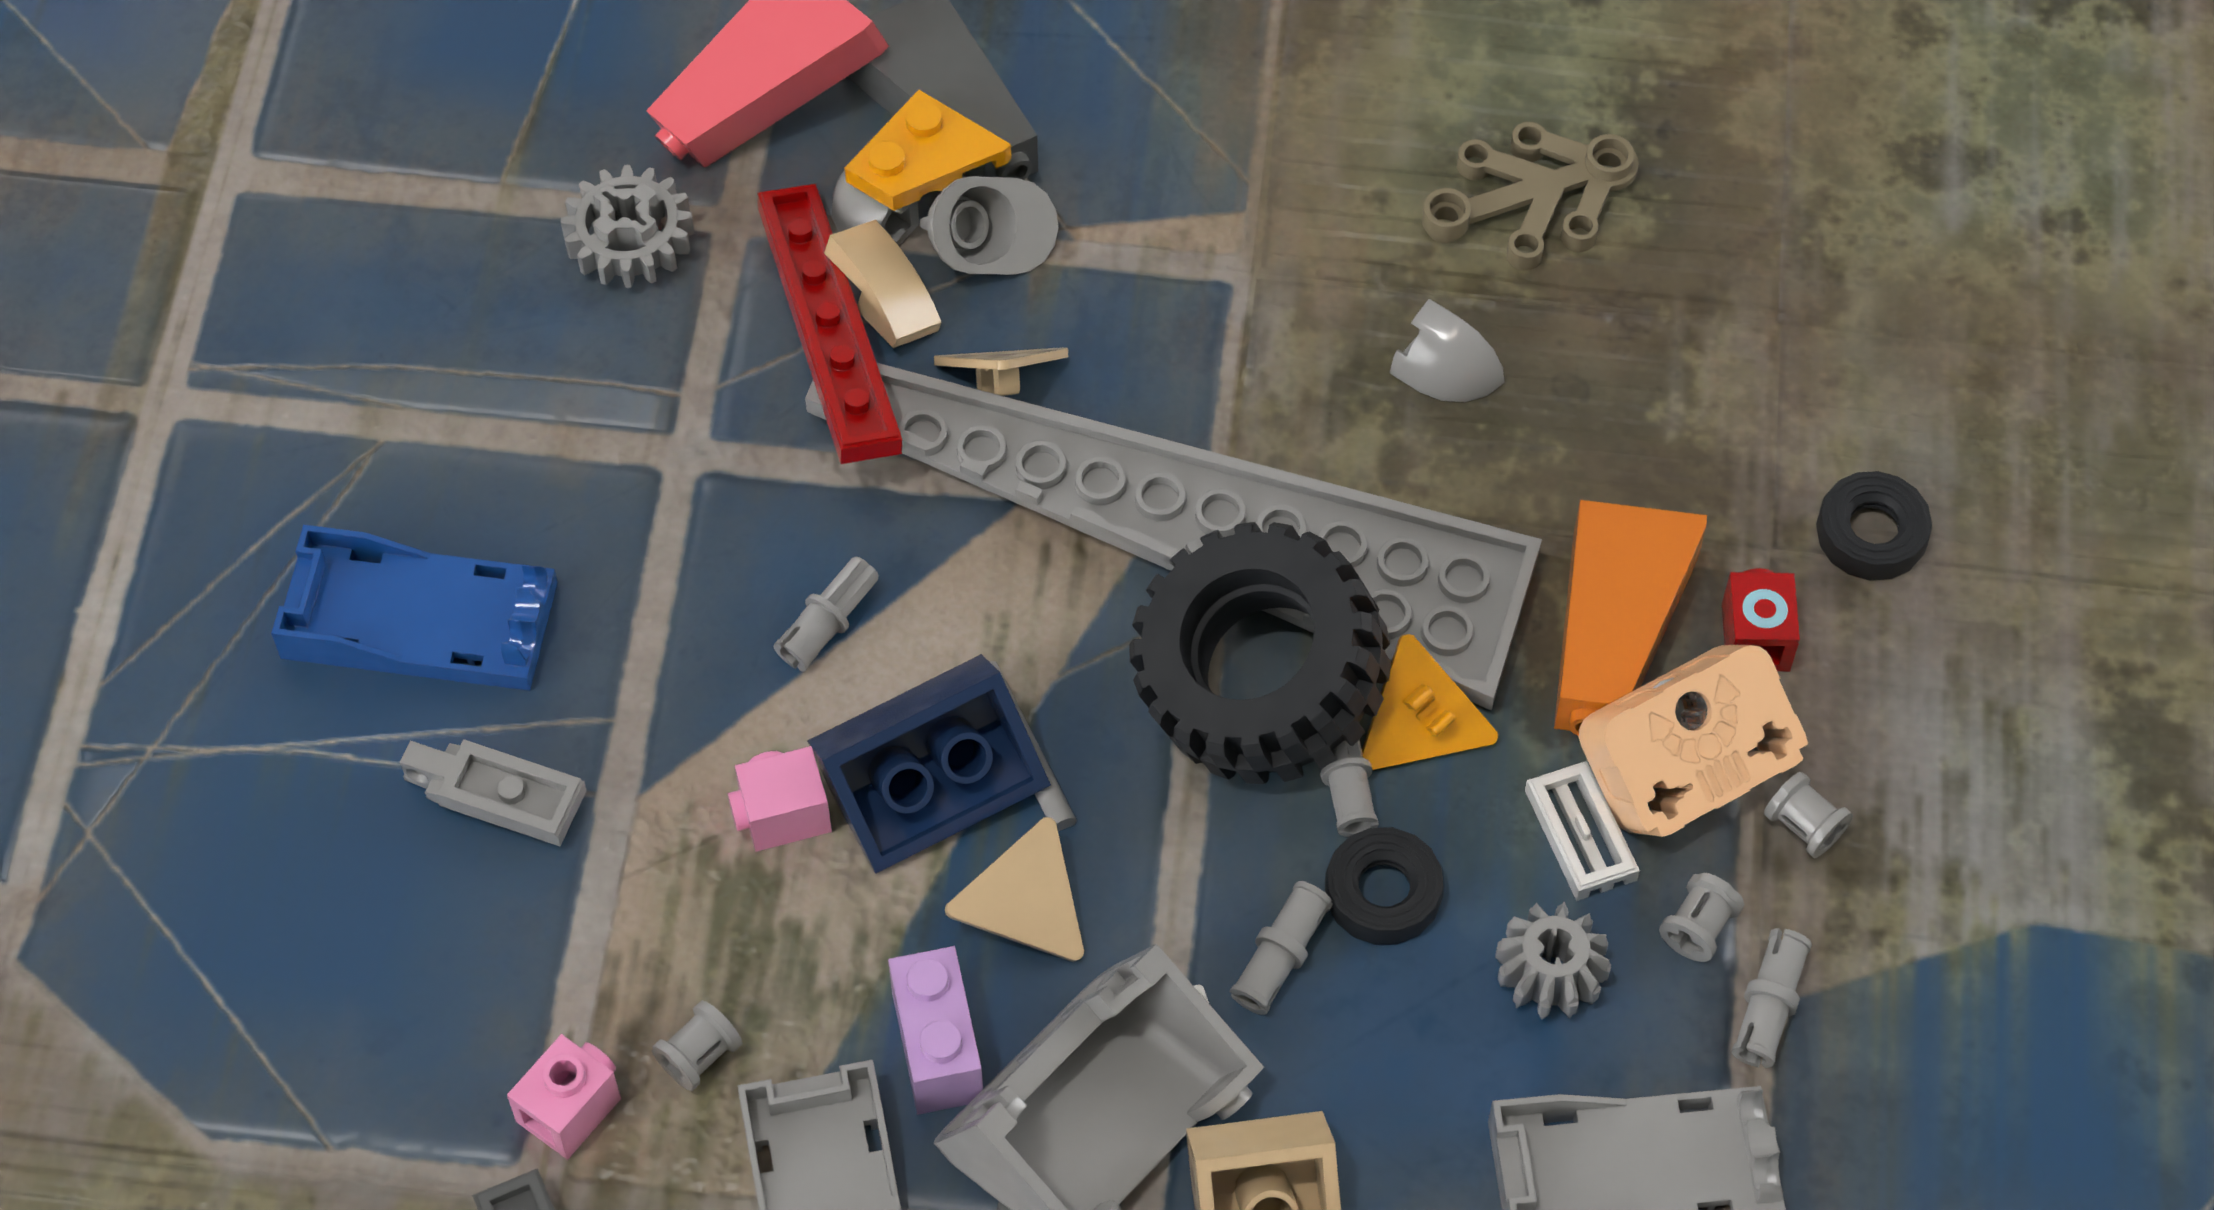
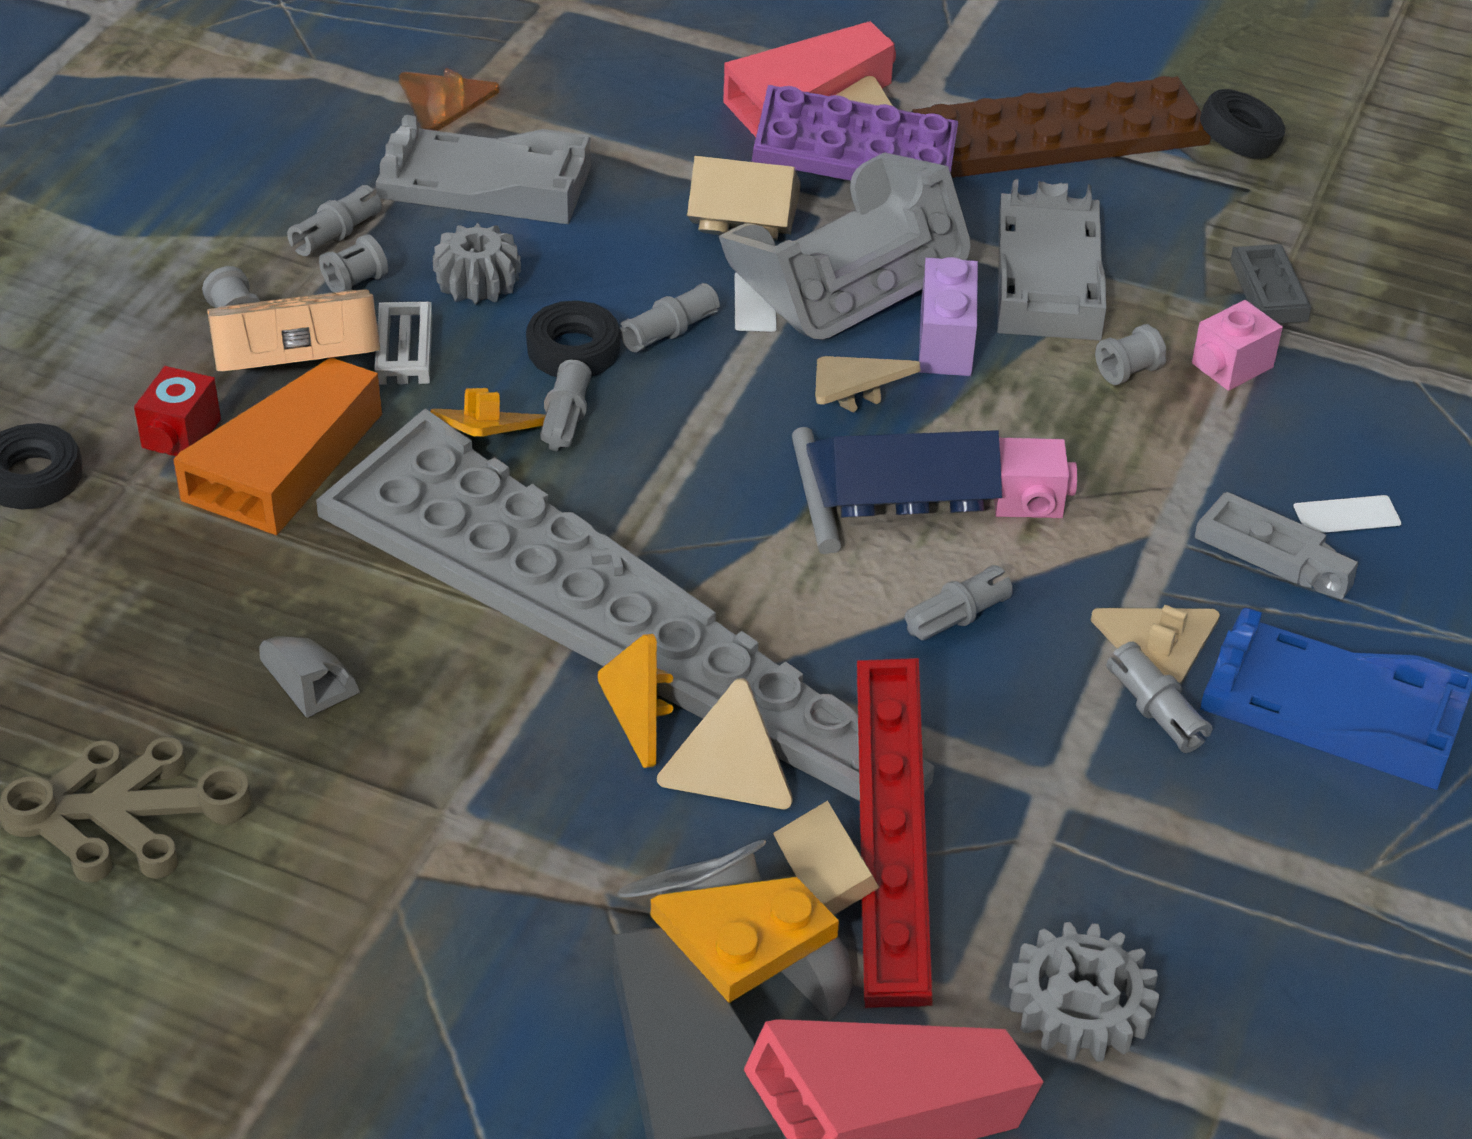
camera: 165 degrees left, 15 degrees down
(413, 891) = (1348, 514): none -> white sticker
(599, 553) = (1159, 697): none -> light grey pin
(609, 650) = (1166, 634): none -> tan piece
(1110, 391) = (632, 692): none -> light orange piece
(1215, 591) = (606, 429): black tyre -> none

